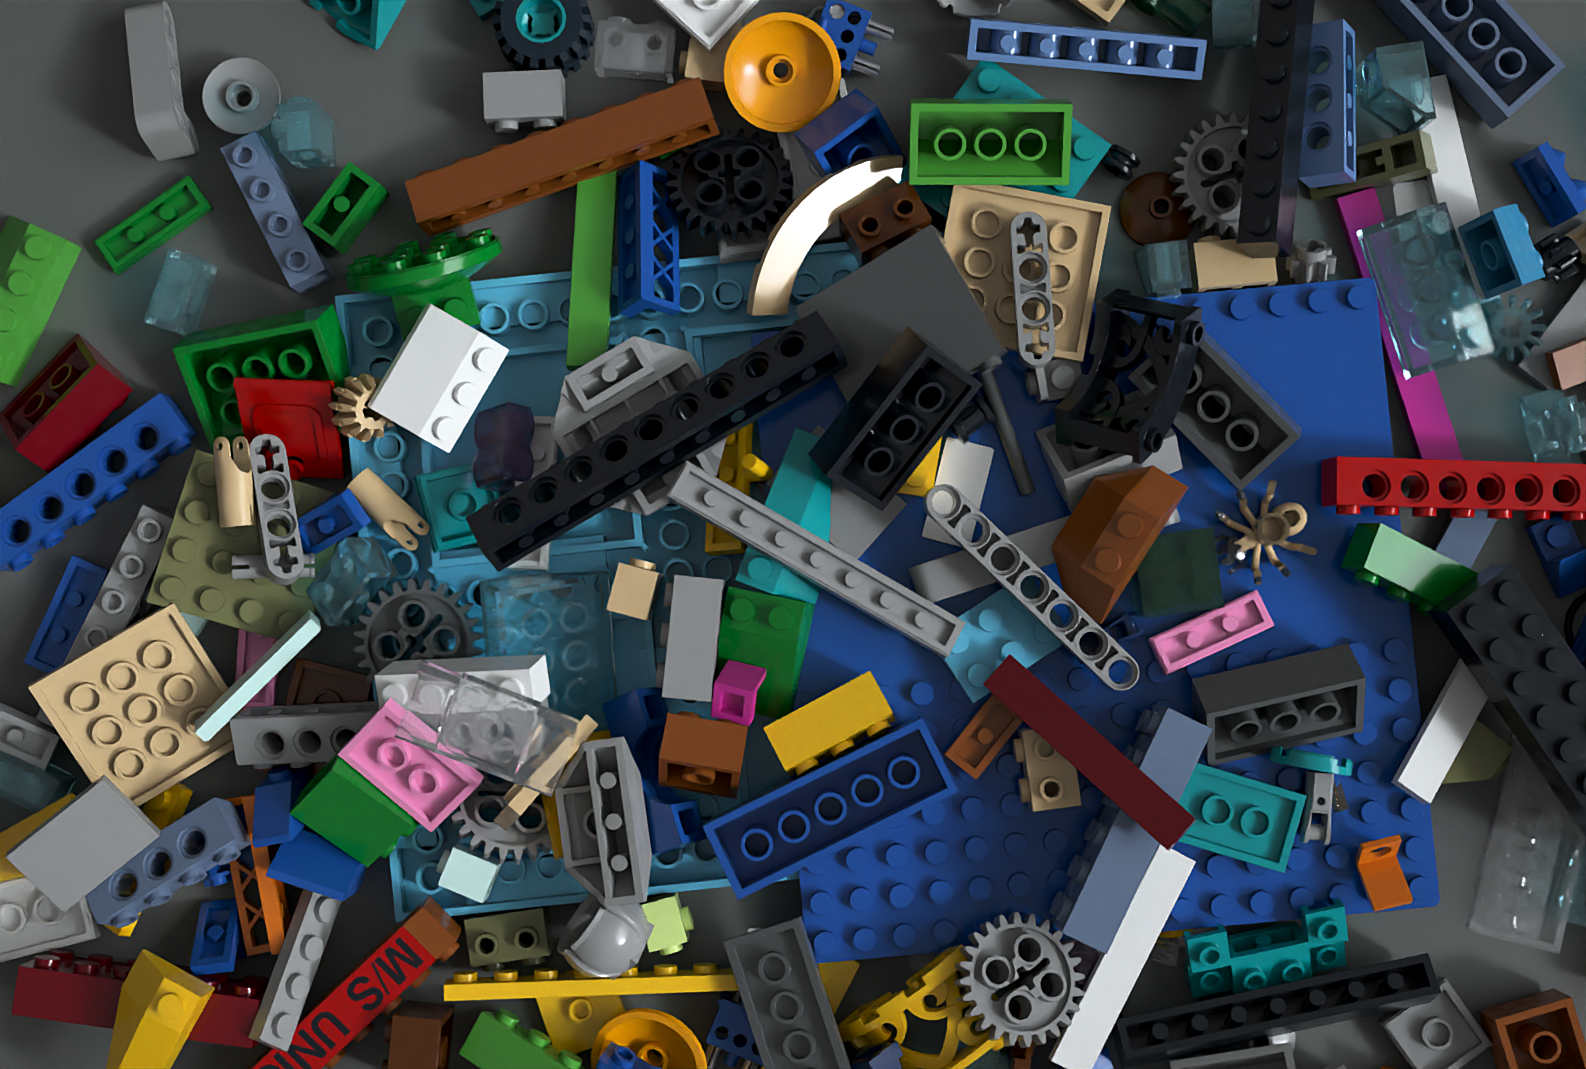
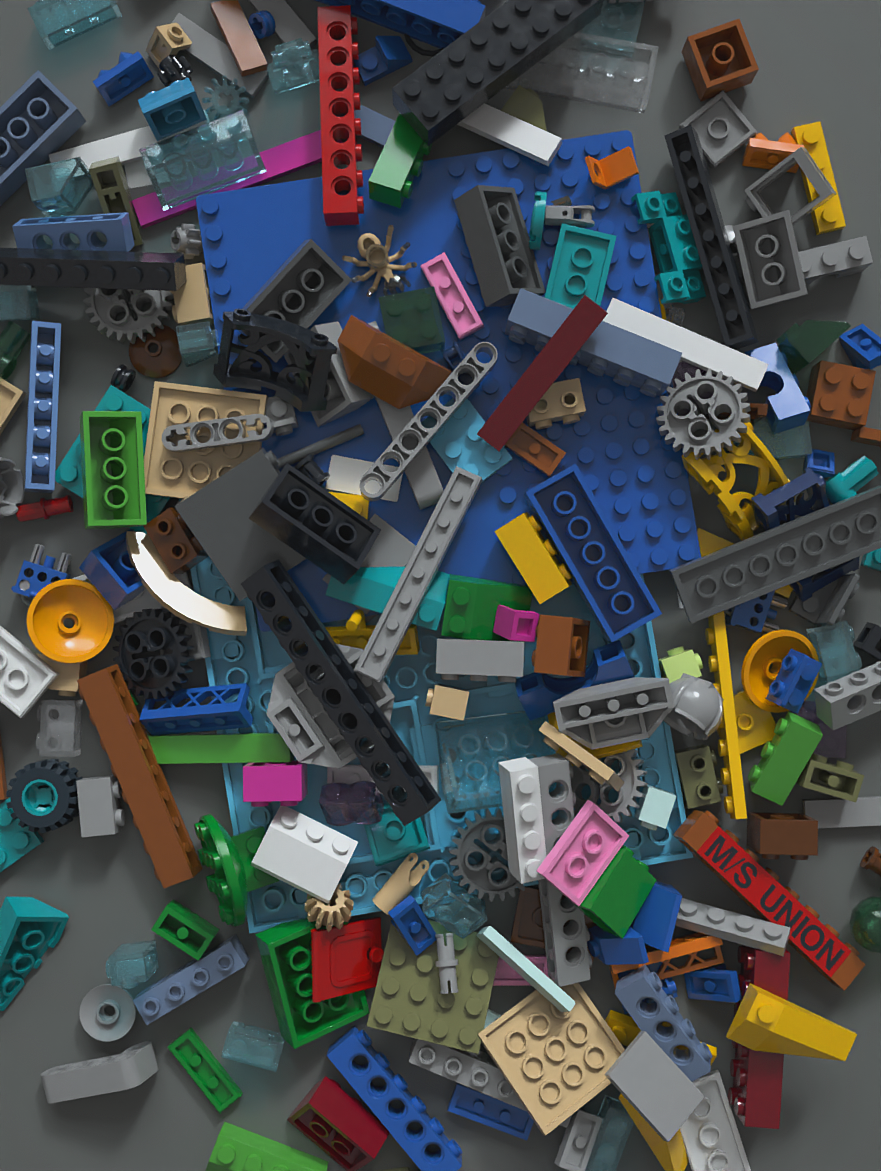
camera: 95 degrees left, 0 degrees up
(234, 483) = (389, 995): tan piece -> none
(279, 508) = (405, 962): light grey beam -> none
(488, 728) = (553, 798): clear piece -> none
(538, 342) = (275, 782): none -> dark pink brick
(943, 44) = (44, 508): none -> red axle

